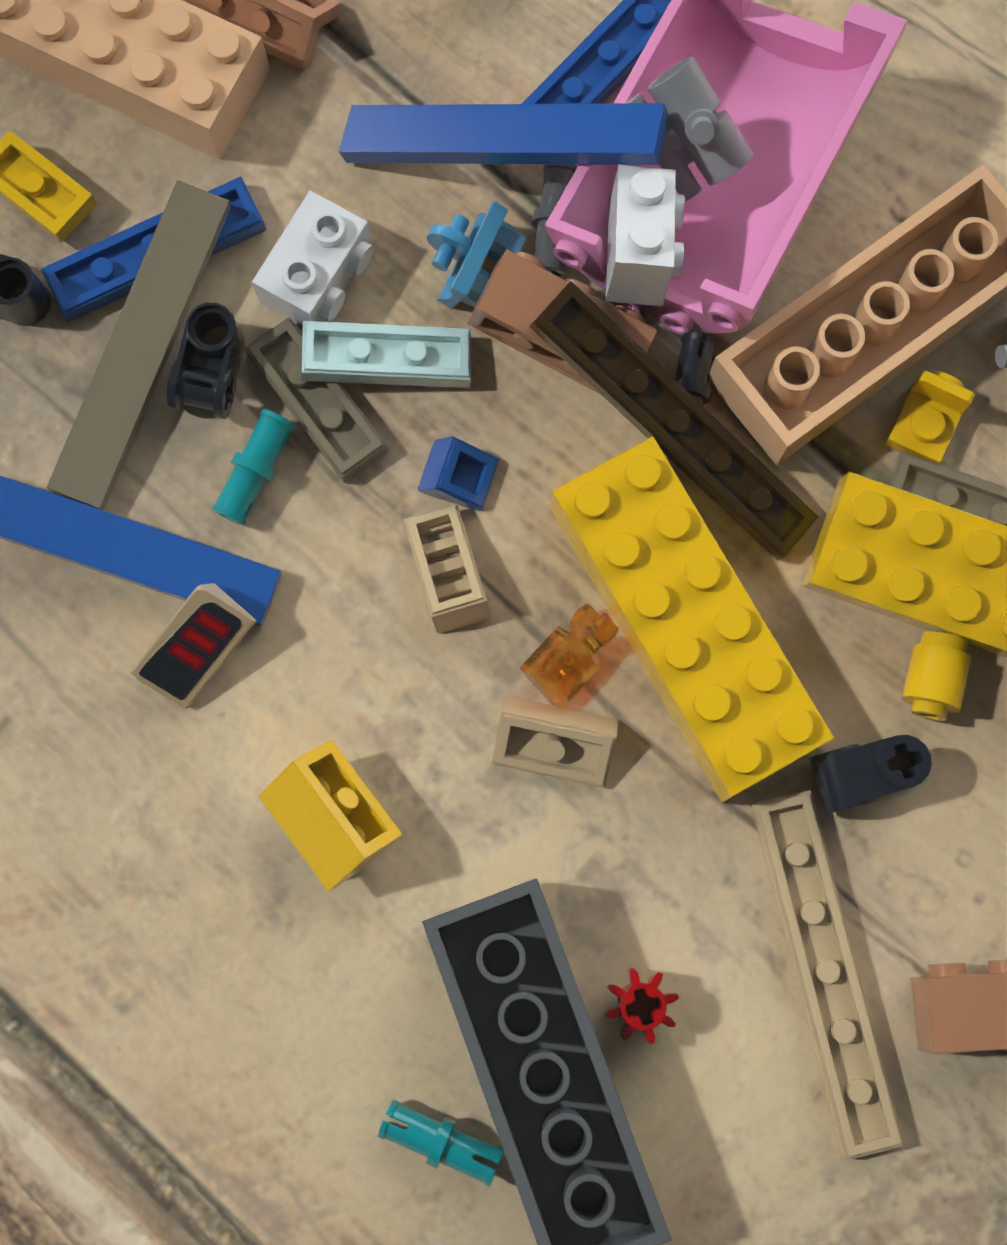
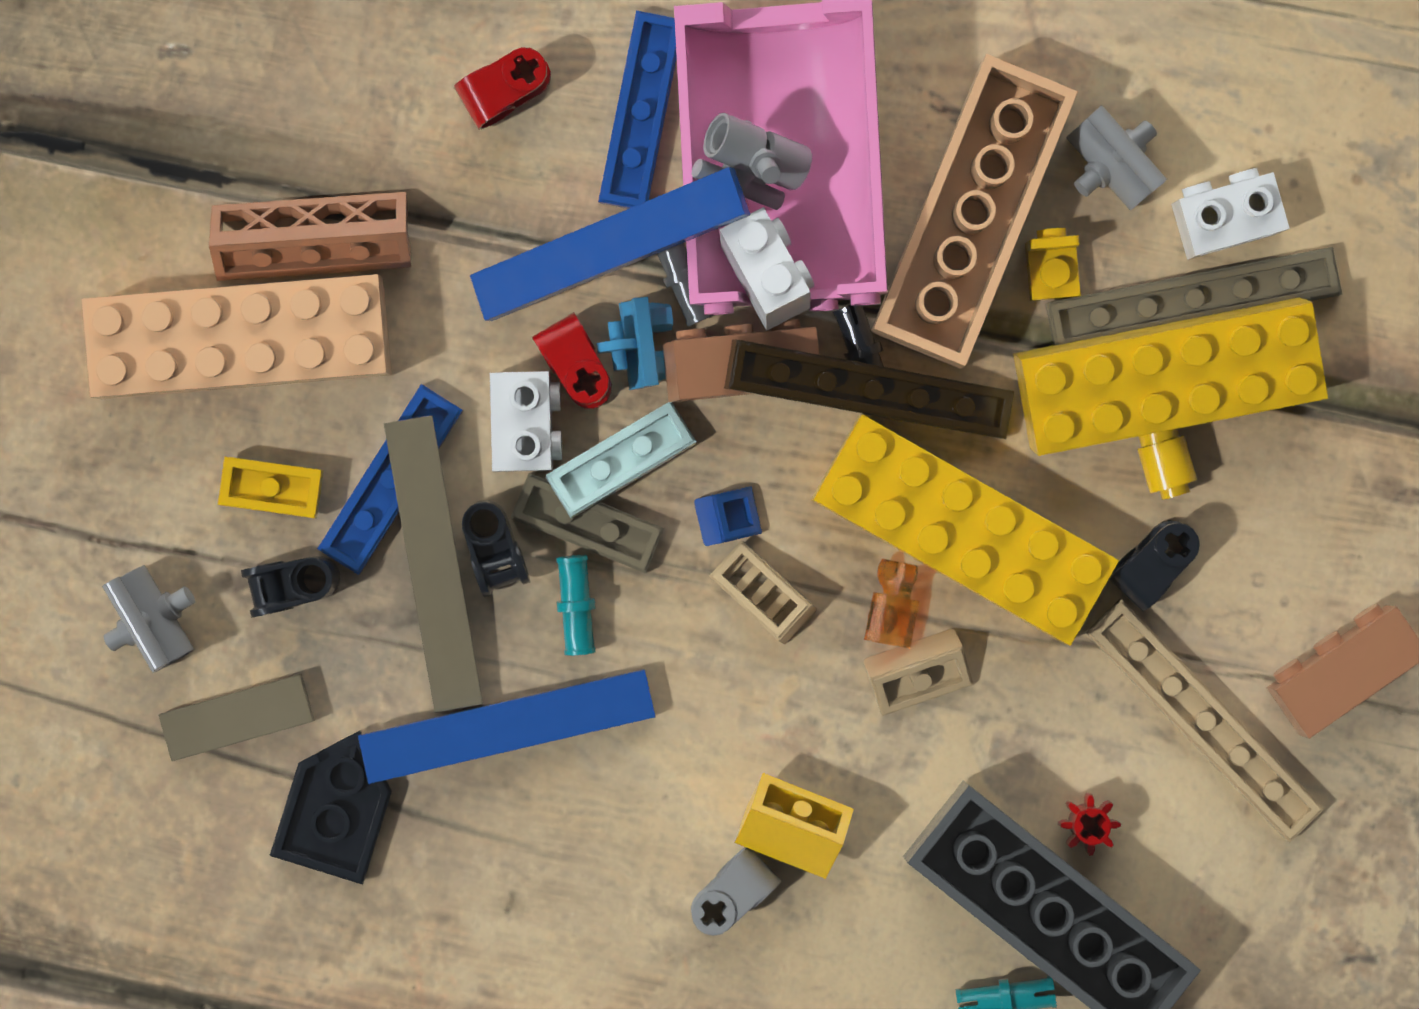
camera: 25 degrees left, 10 degrees up
(194, 645) = (620, 762): slope -> none
(234, 848) = (740, 885): none -> light grey piece
(400, 236) = (572, 356): none -> red piece

